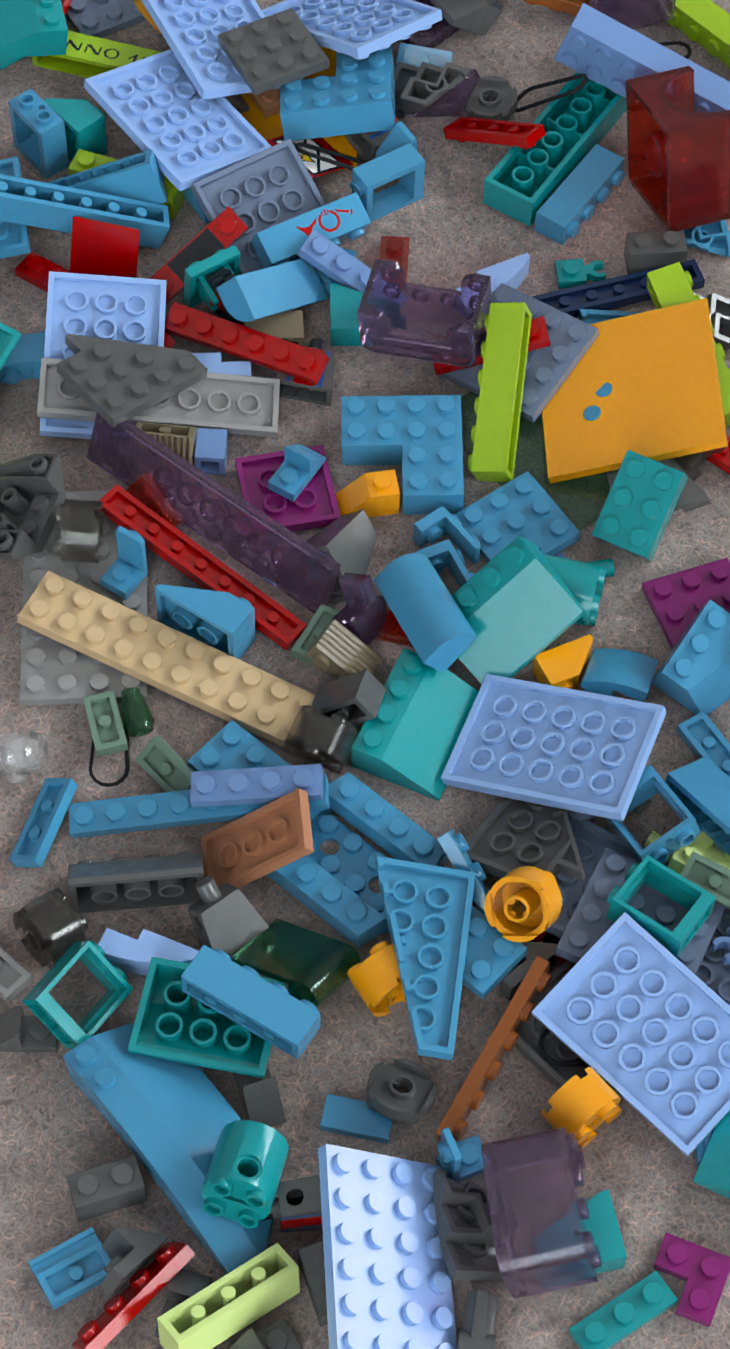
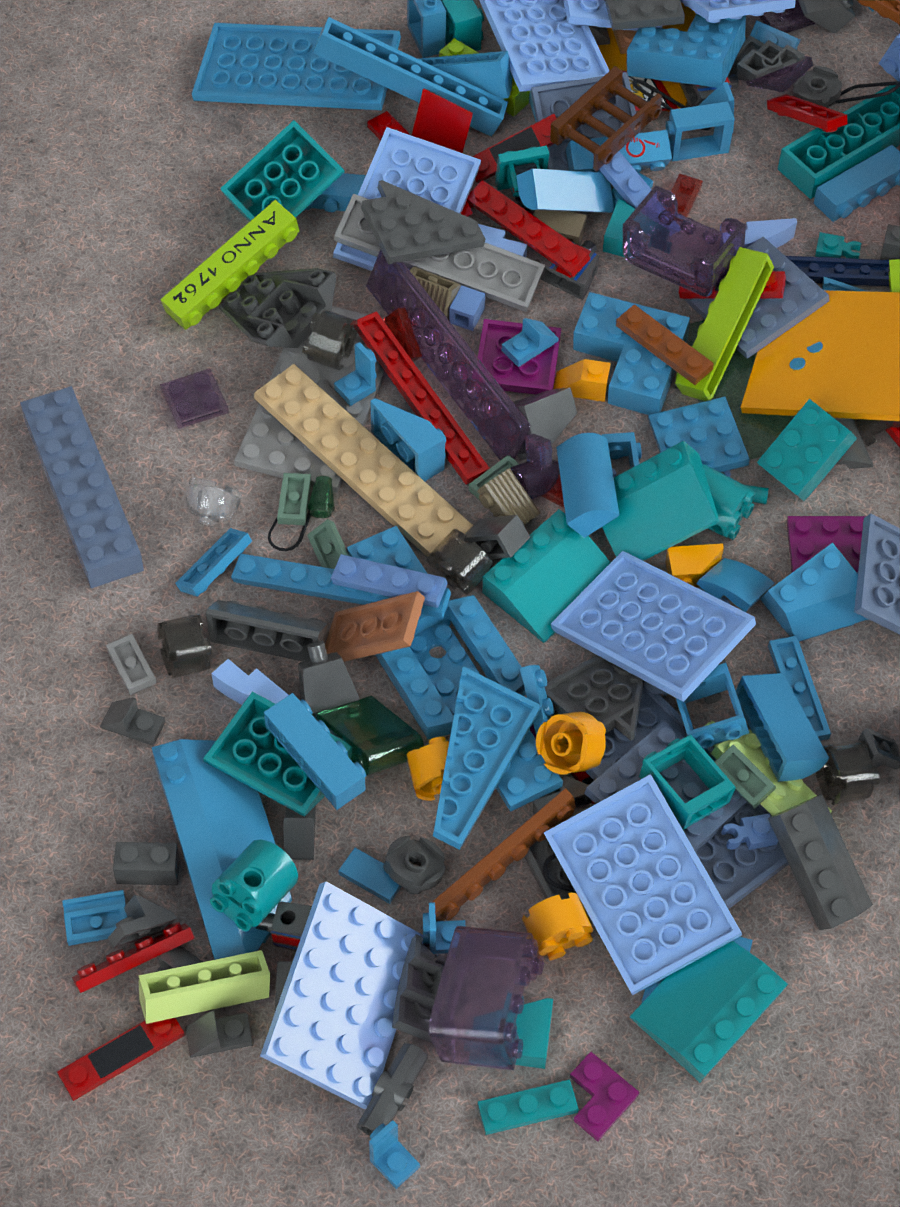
camera: 20 degrees right, 0 degrees up
(54, 1016) = (158, 717): teal window -> none
(271, 178) = (597, 99): none -> reddish brown fence
(440, 521) = (633, 417): dark azure bracket -> none
(447, 432) = (664, 344): none -> dark orange plate

